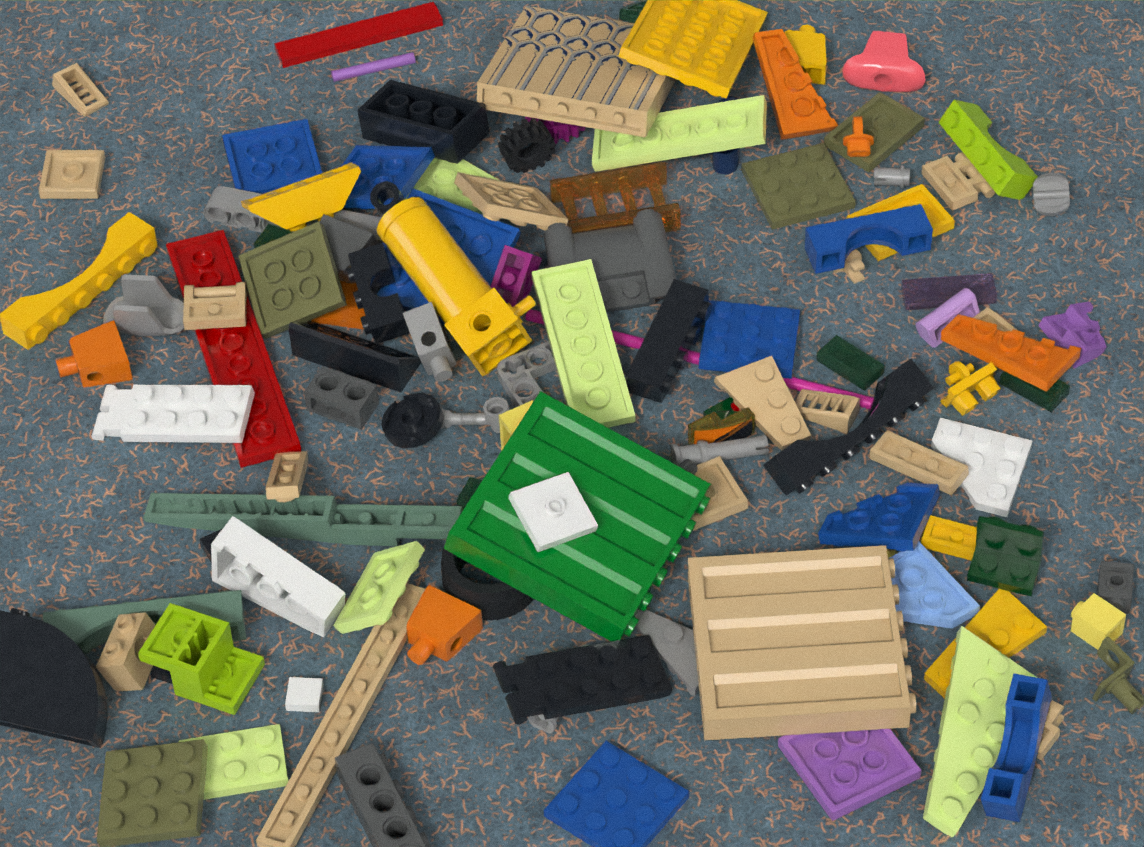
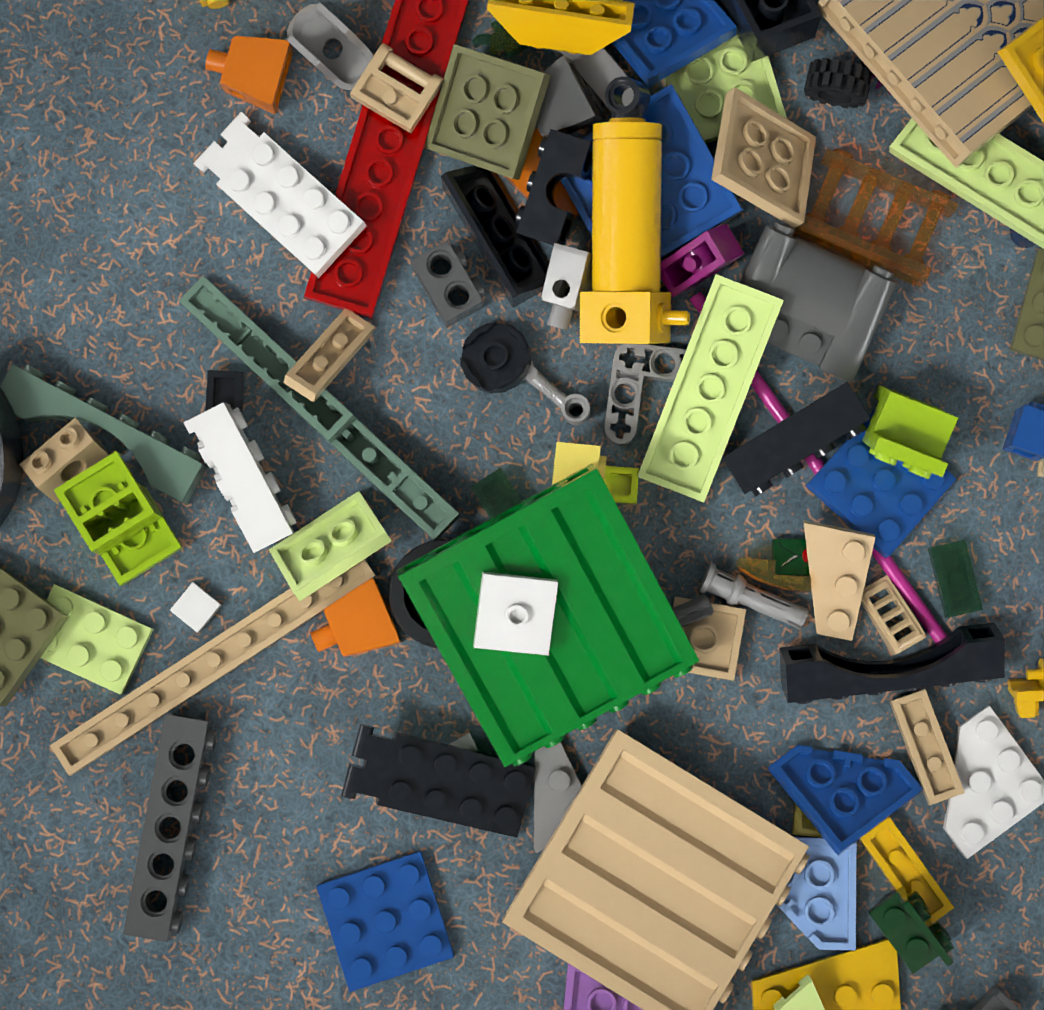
camera: 30 degrees right, 35 degrees up
(742, 285) = (909, 432): none -> lime bracket

